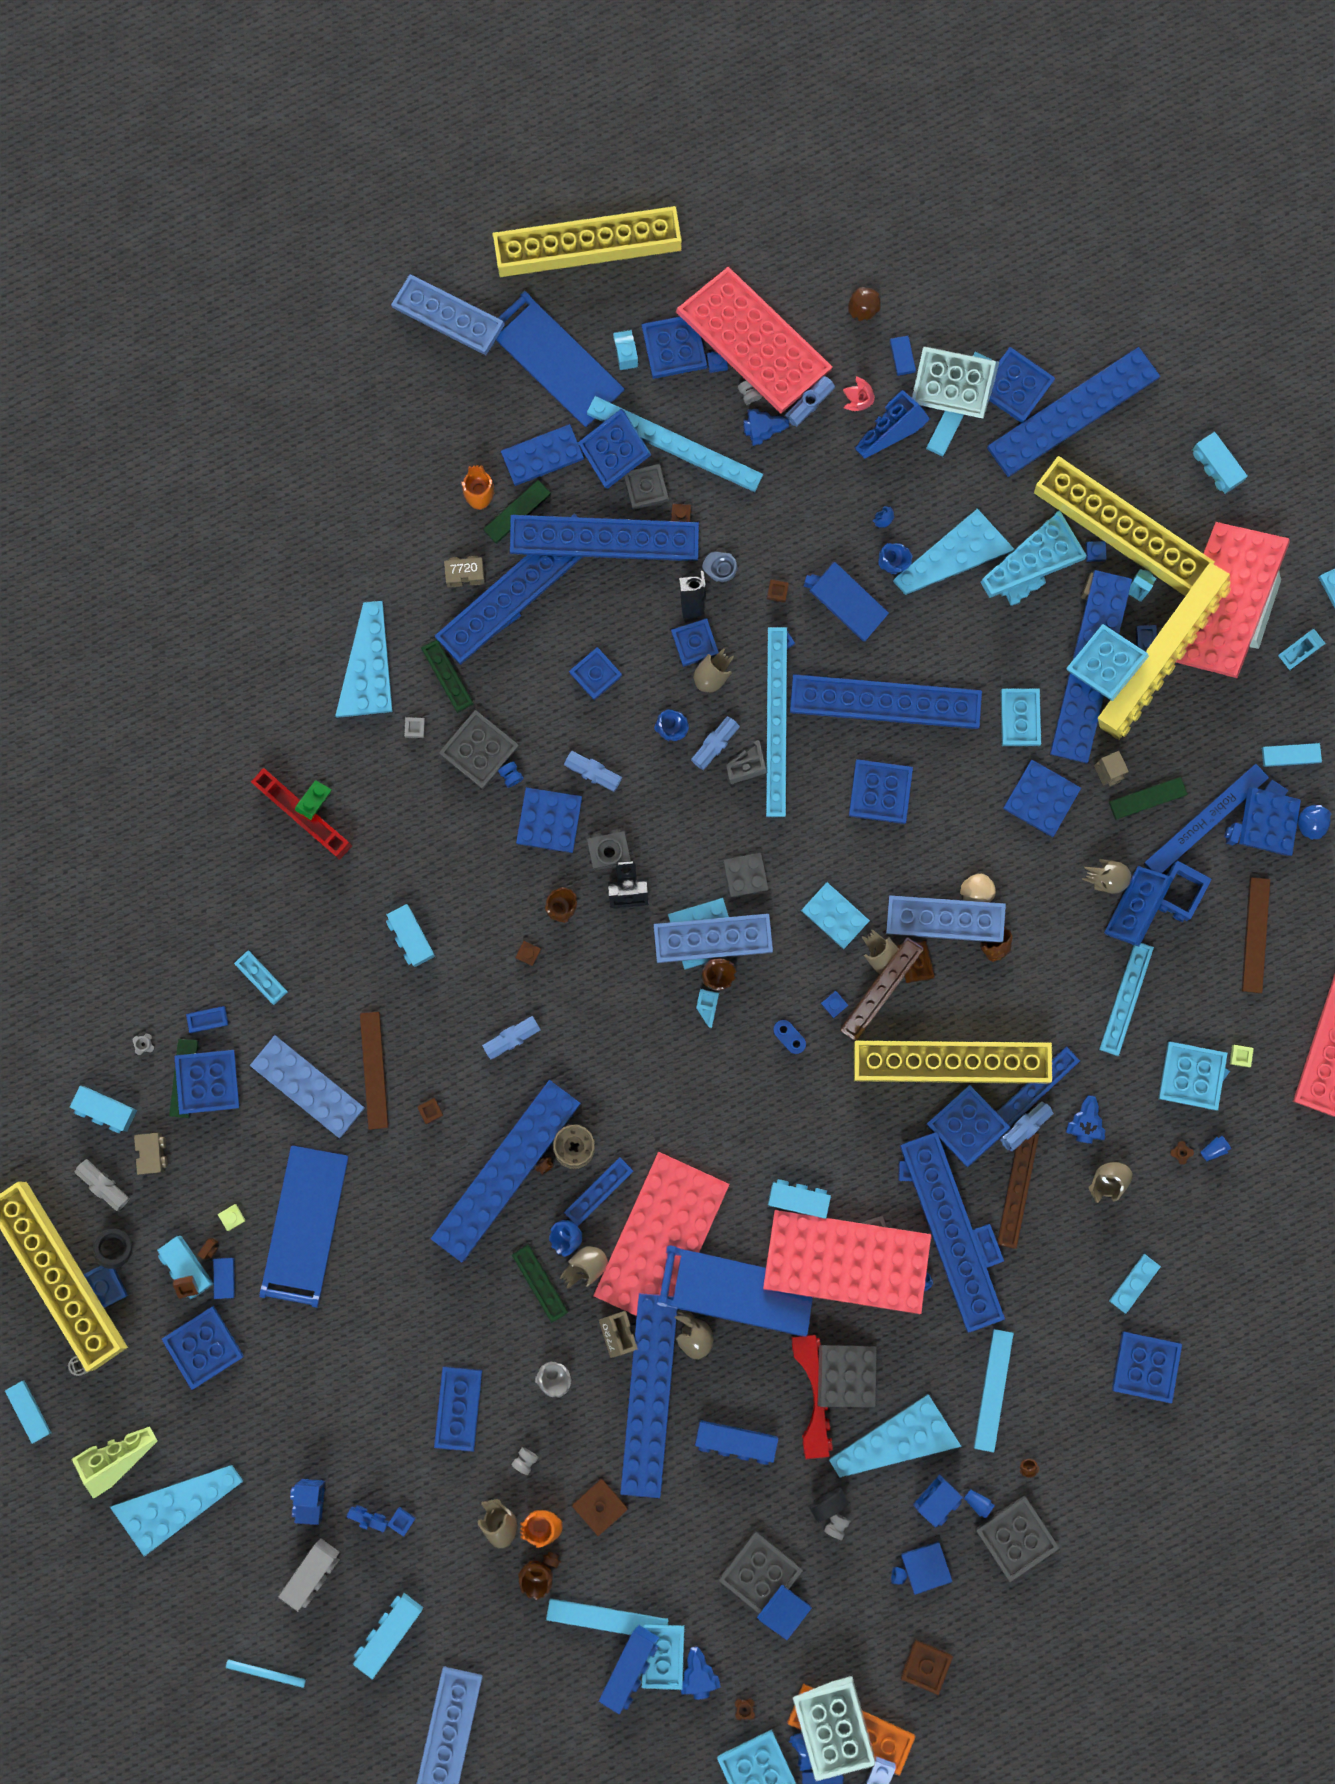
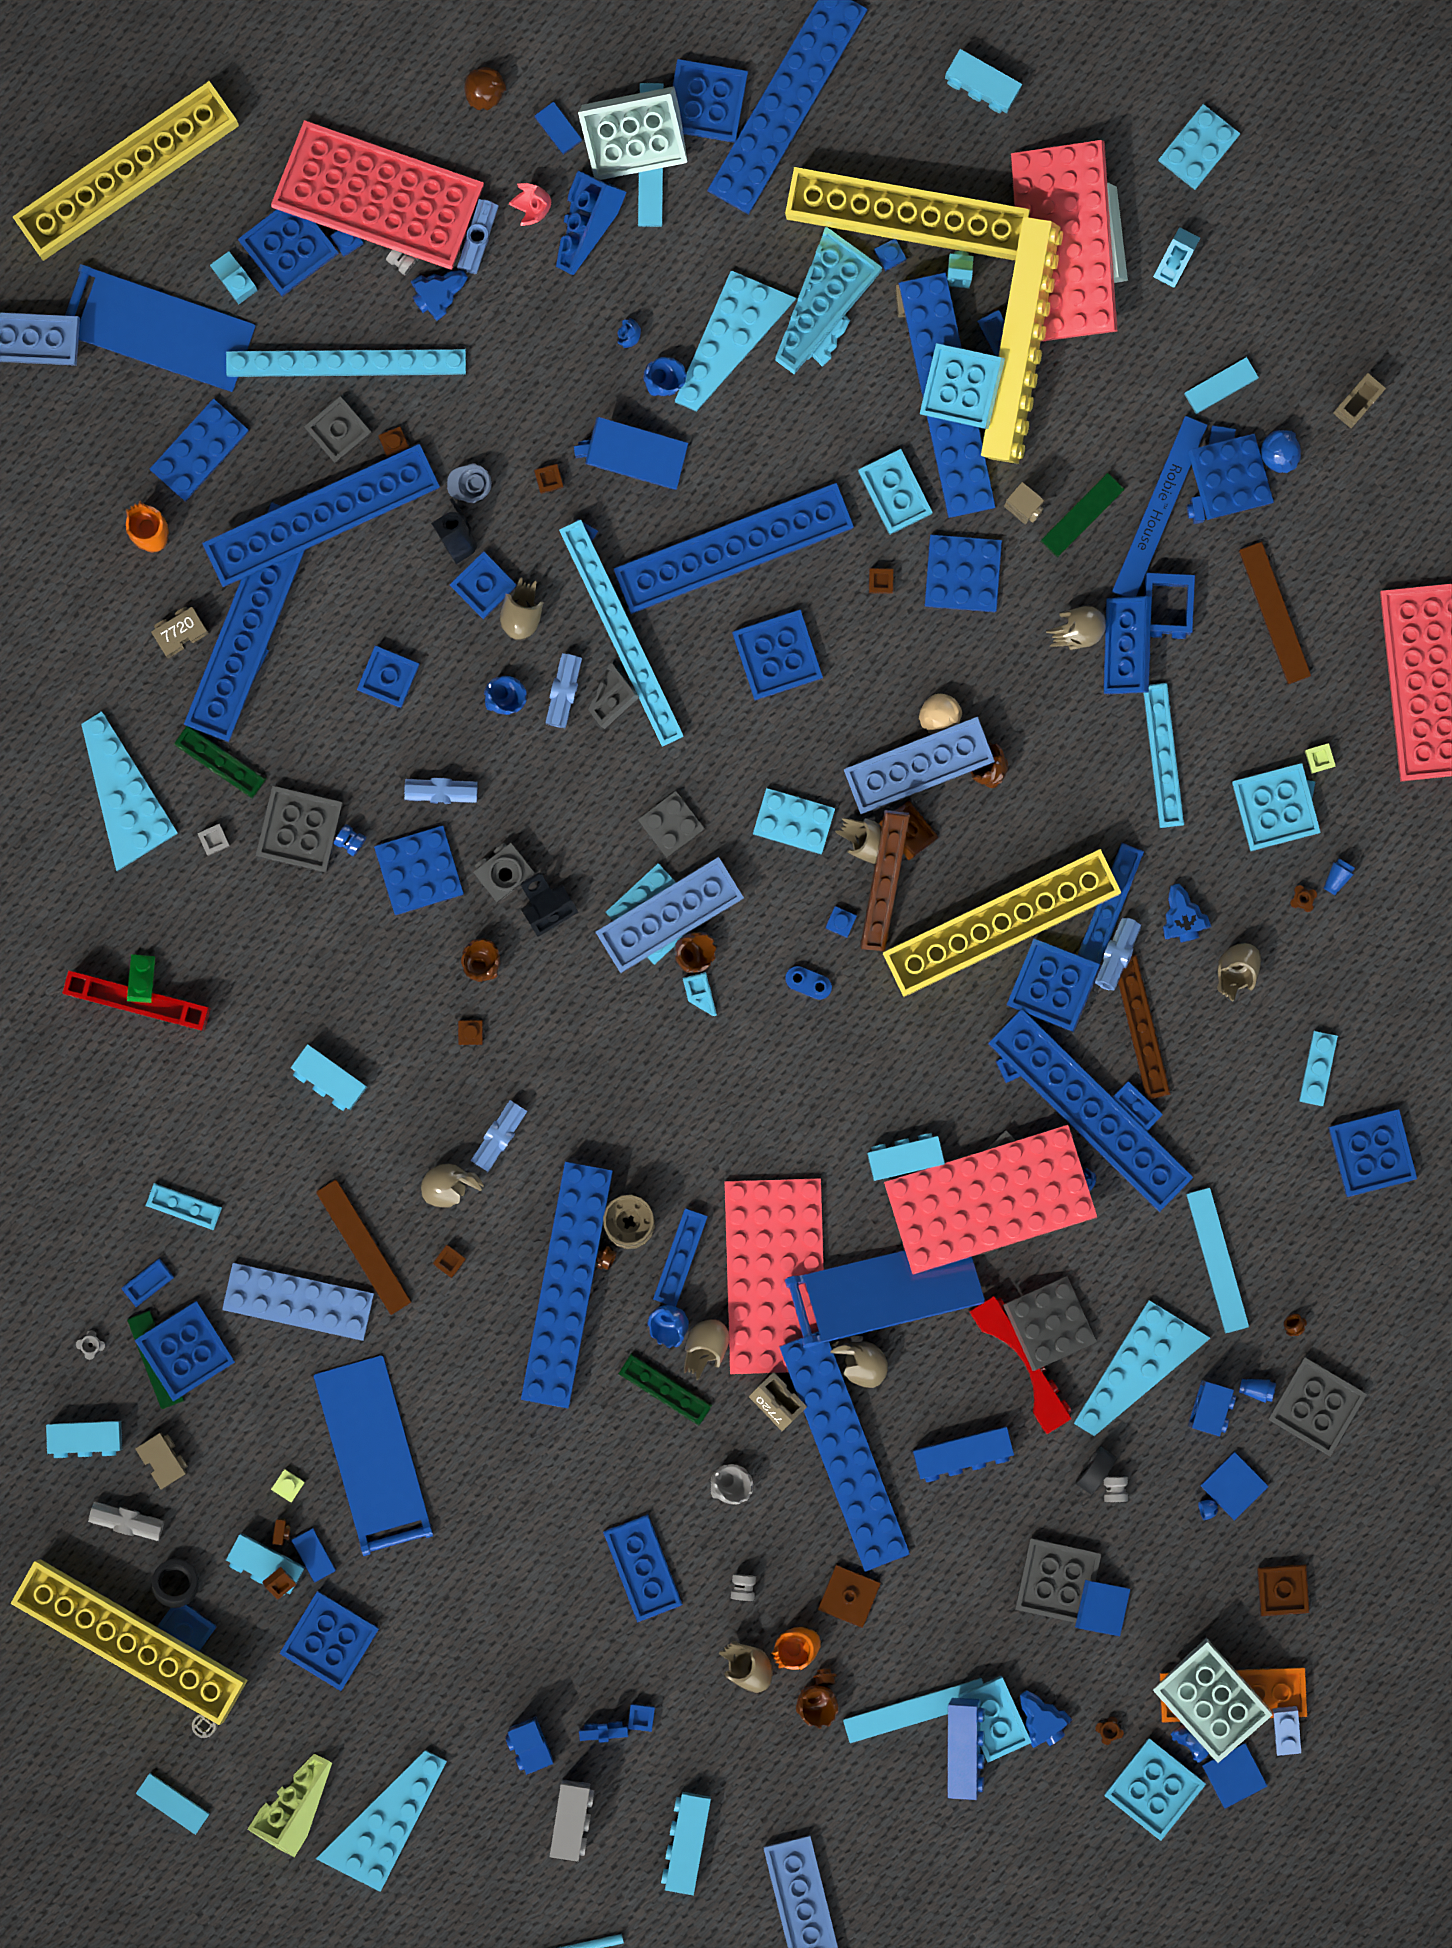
camera: 30 degrees left, 5 degrees up
(455, 1054) = (443, 1187): none -> dark tan helmet
(522, 505) = (203, 529): dark green tile -> none
(614, 448) = (280, 404): blue plate -> none
(980, 775) = (881, 581): none -> reddish brown plate

